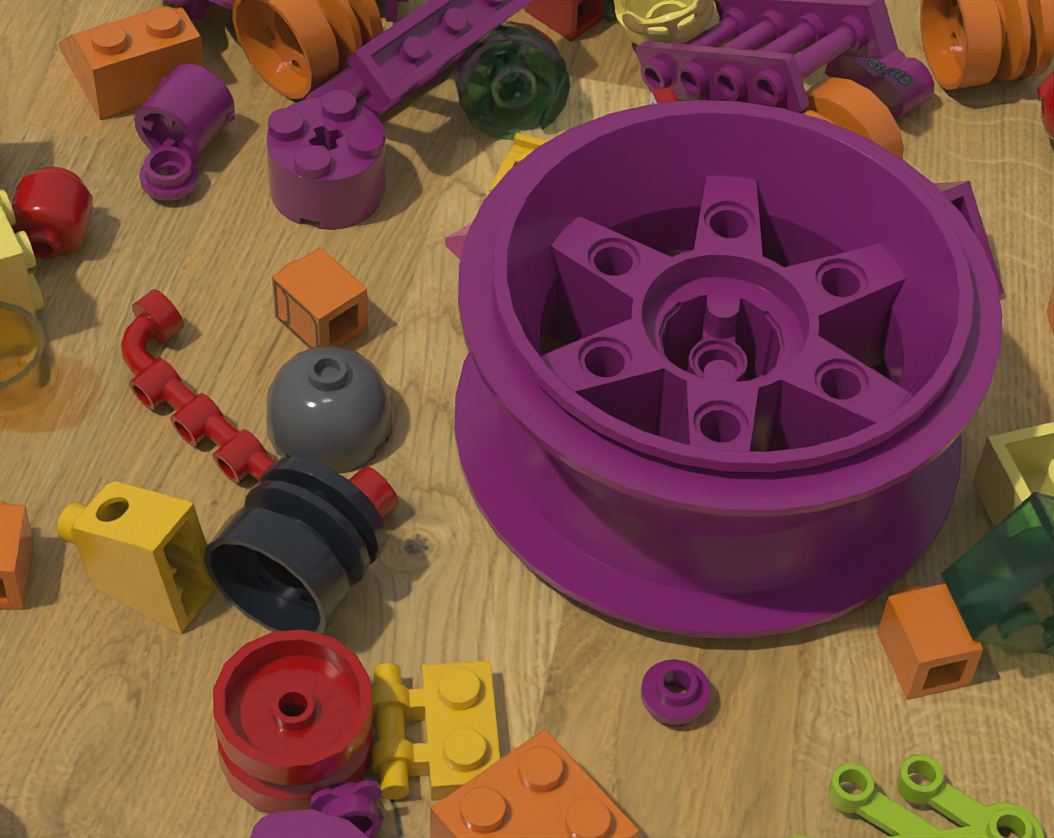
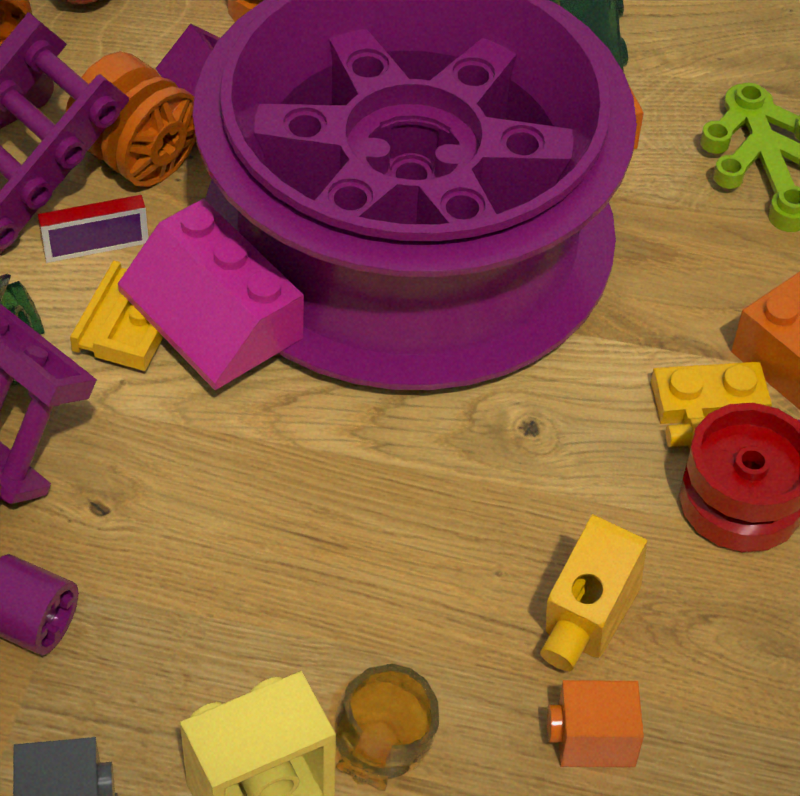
camera: 90 degrees left, 0 degrees up
(52, 211) = (153, 714): red head -> none
(168, 174) = (96, 612): magenta plate -> none
(198, 414) = (420, 575): red bar -> none
(296, 546) = (578, 468): black wheel -> none
(320, 301) = (282, 485): orange brick -> none
(326, 160) = (102, 480): magenta brick -> none
(329, 408) = (404, 480): dark grey cylinder -> none
(670, 707) = (661, 264): magenta plate -> none

